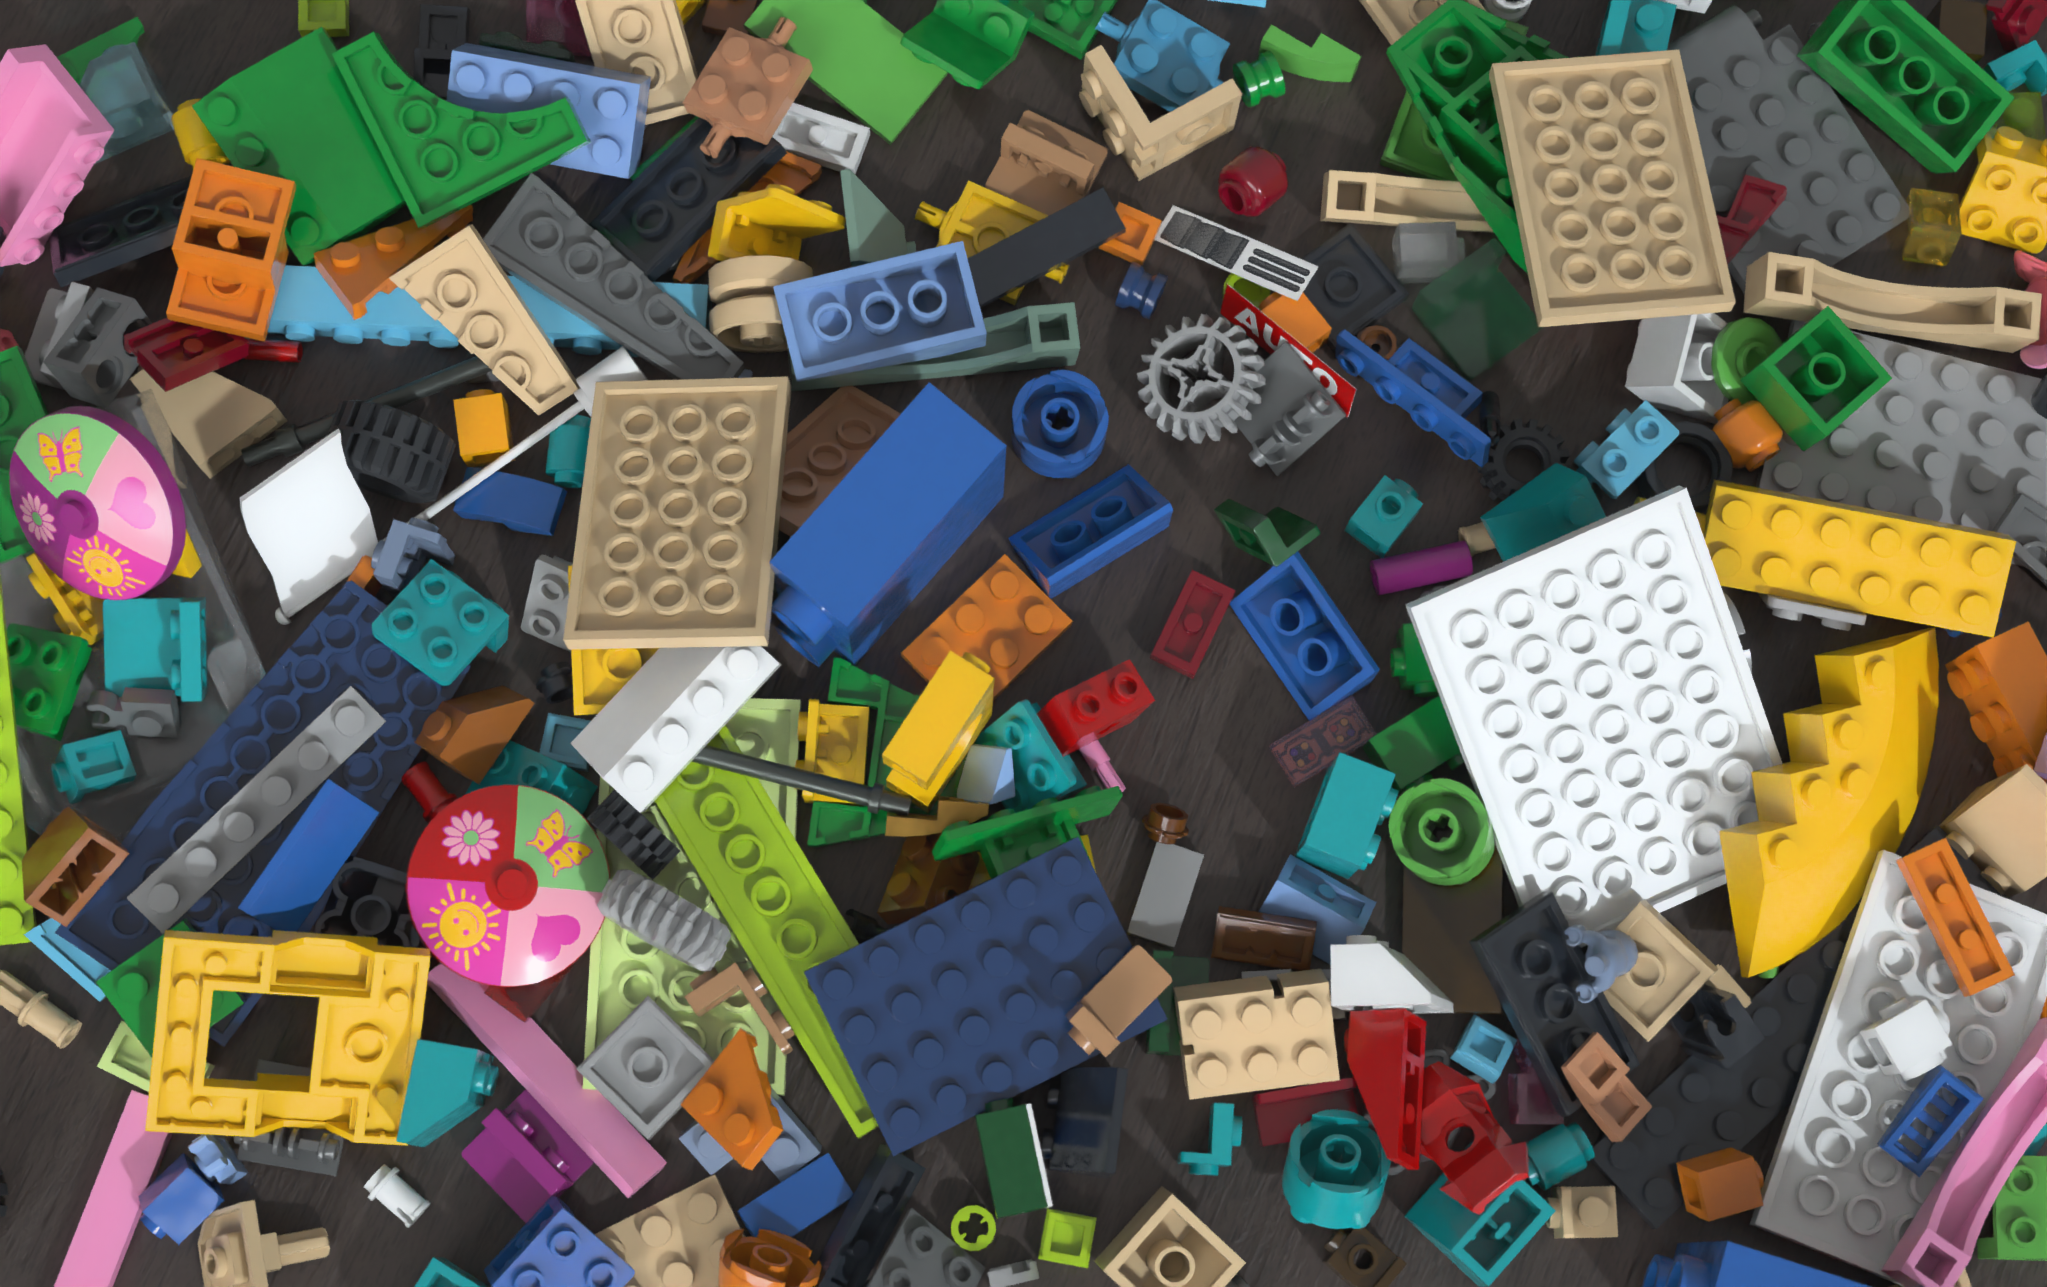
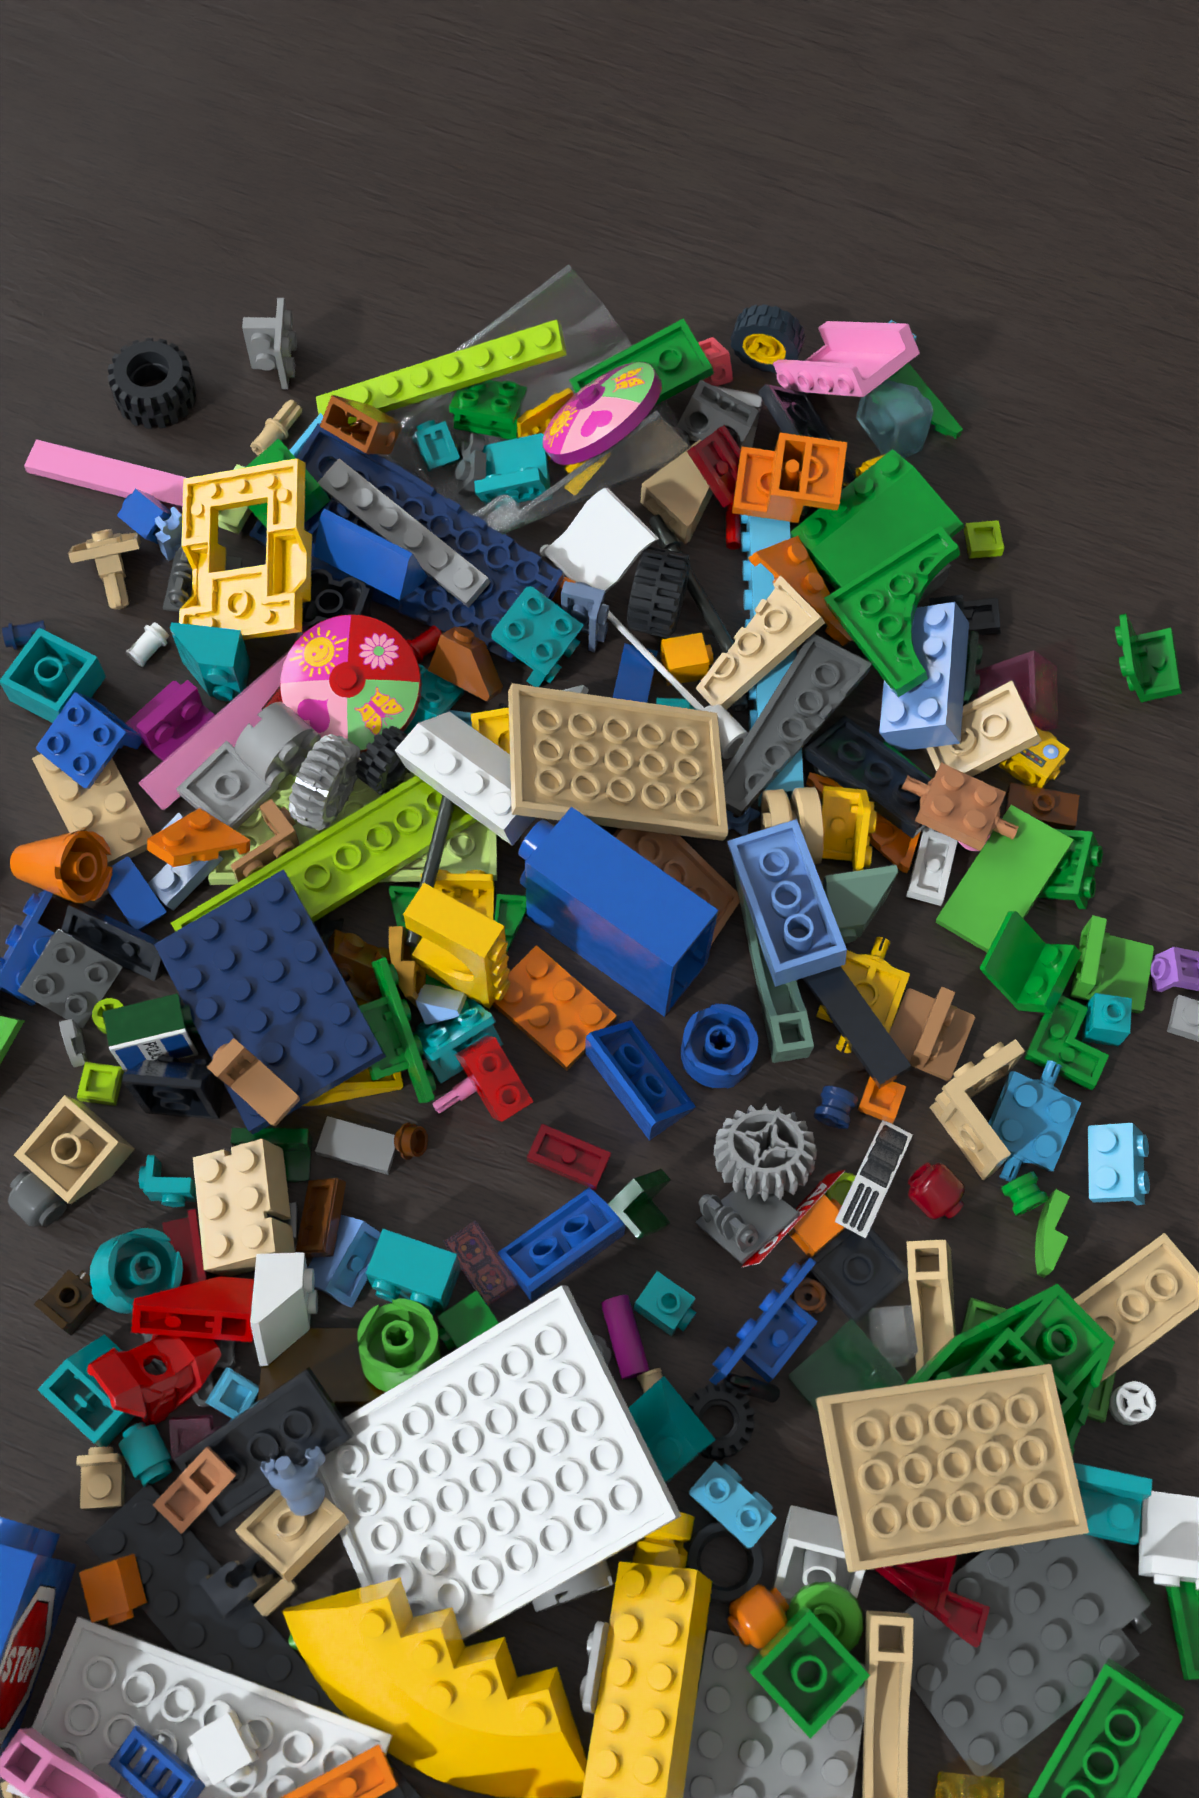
camera: 90 degrees right, 10 degrees down
(601, 987) = (276, 743): none -> light grey brick

